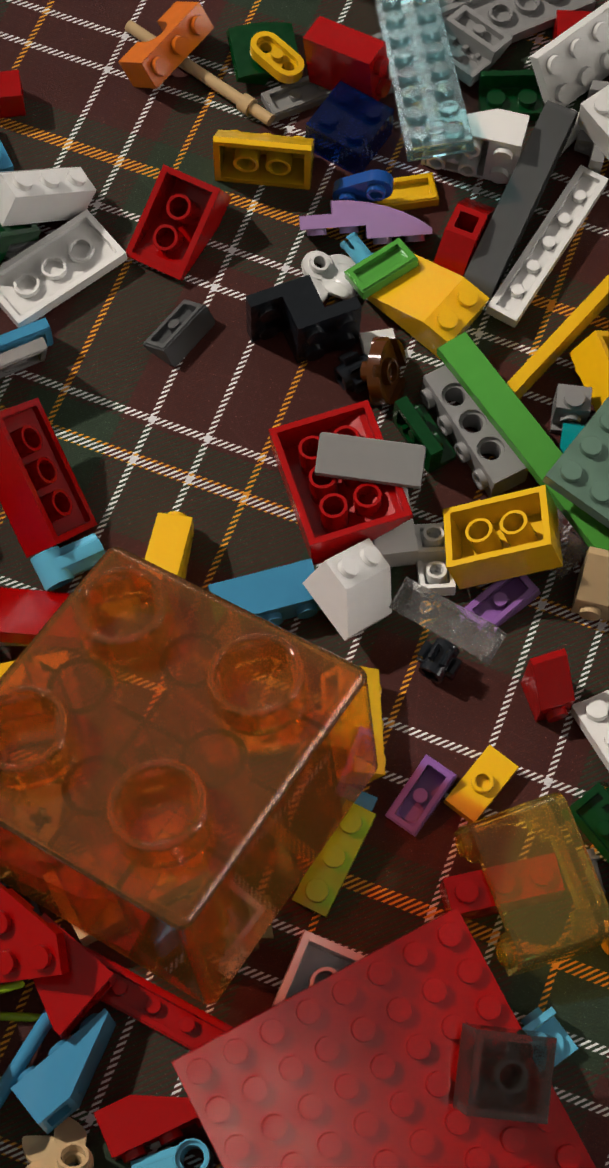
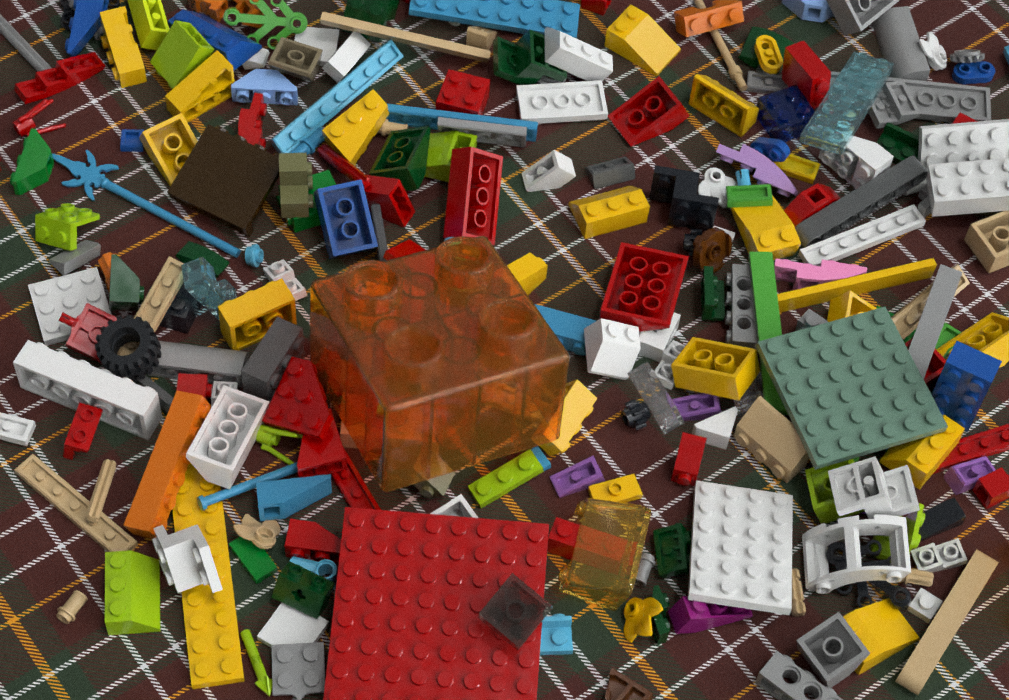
camera: 30 degrees right, 10 degrees down
(100, 125) = (641, 41): none -> yellow slope
(104, 381) = (549, 172): none -> white slope
(215, 387) = (610, 211): none -> yellow slope
(370, 460) = (665, 285): light grey slope -> none
(525, 336) = (808, 275): none -> bright pink slope
(553, 618) = (717, 428): none -> white slope

